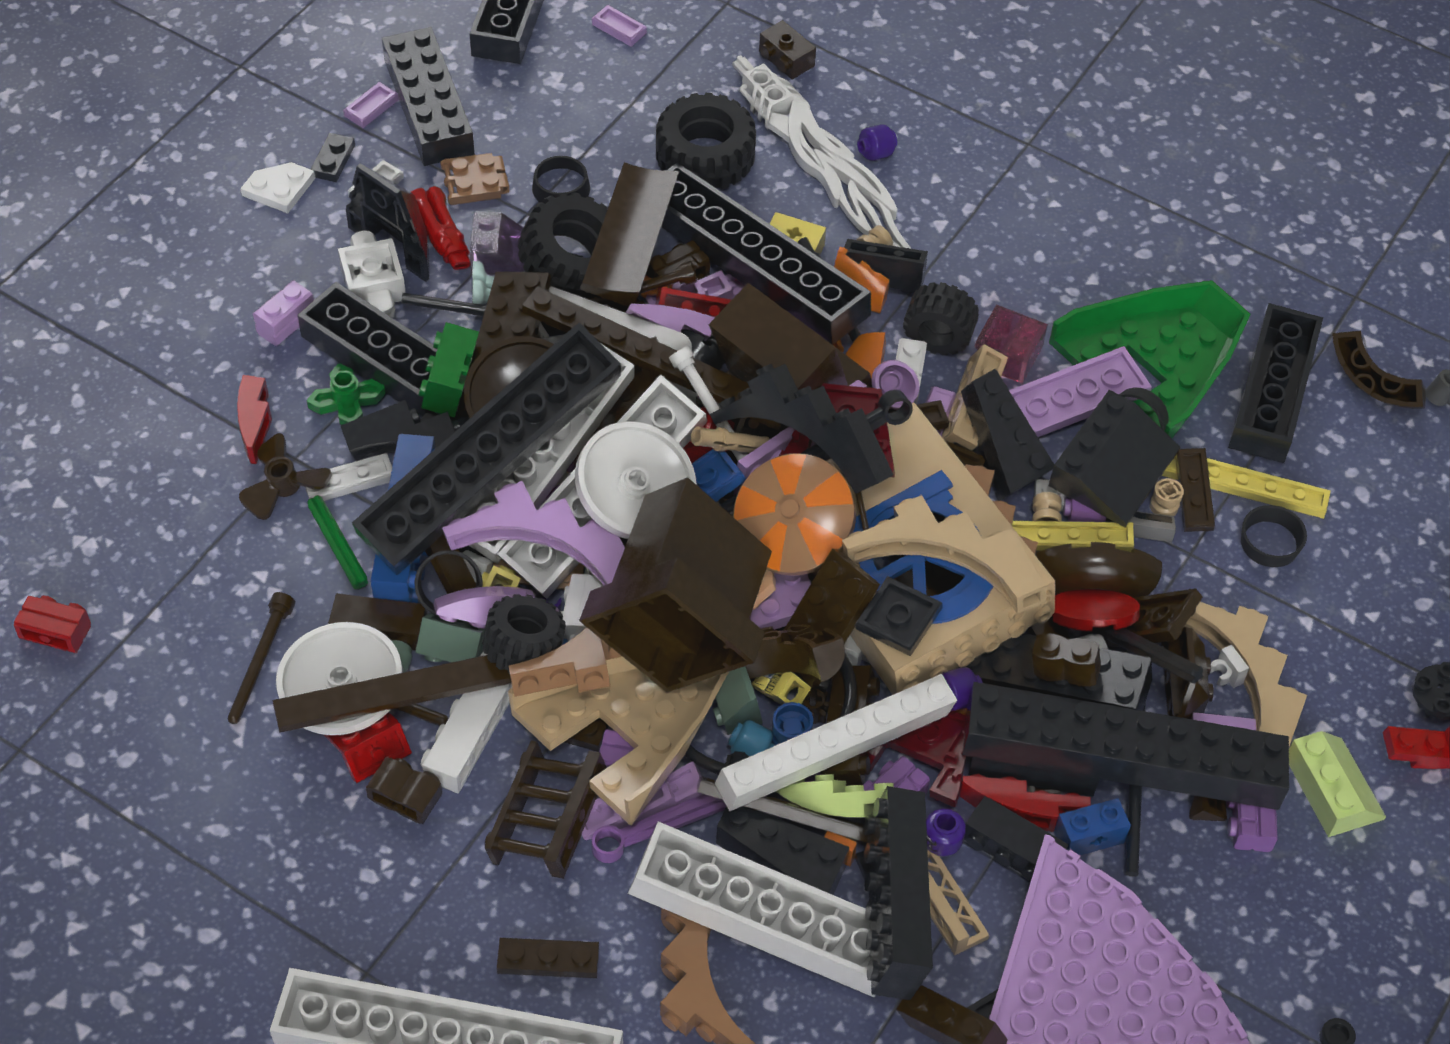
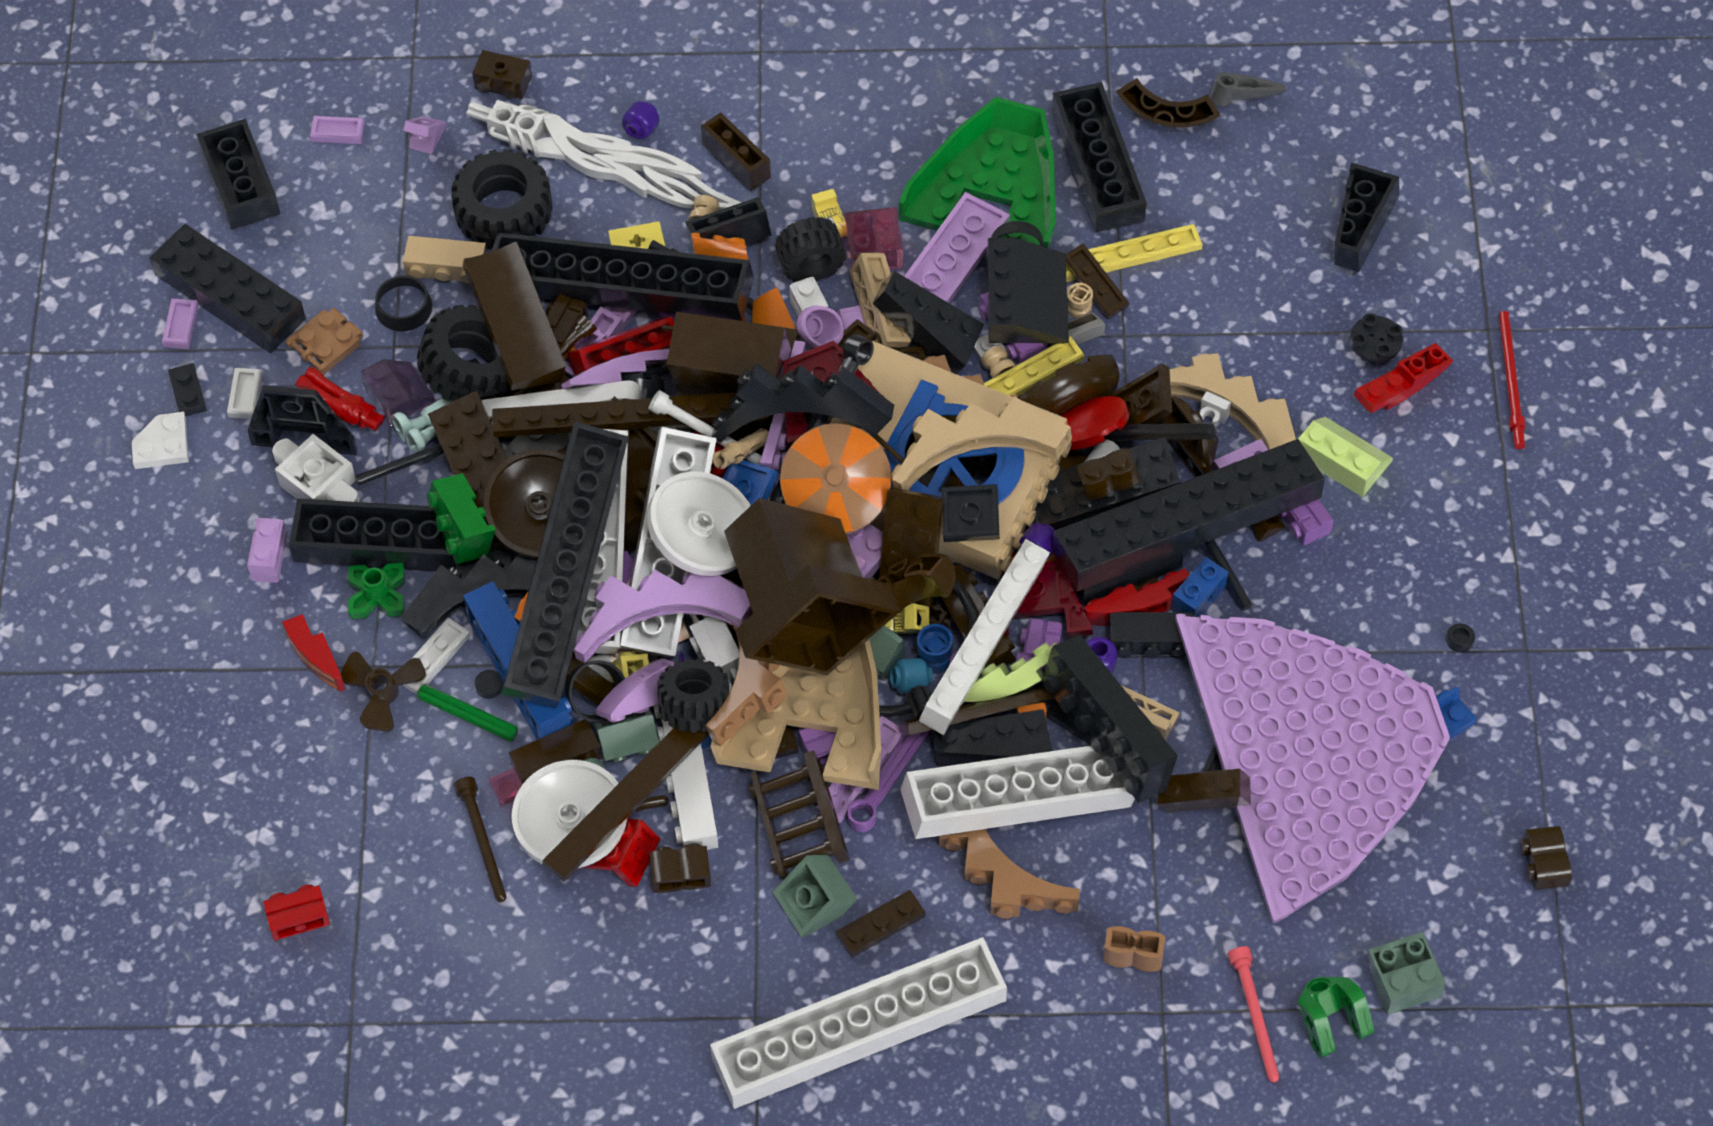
camera: 30 degrees left, 5 degrees up
(312, 619) = (505, 786): none -> clear pink plate
(506, 890) = (814, 894): none -> sand green slope
(606, 156) = (439, 258): none -> tan brick
(686, 61) = (424, 133): none -> lavender slope
(939, 207) = (736, 151): none -> dark brown brick
(986, 297) = (826, 205): none -> light yellow leg
(1277, 515) = (1180, 266): black tyre -> none

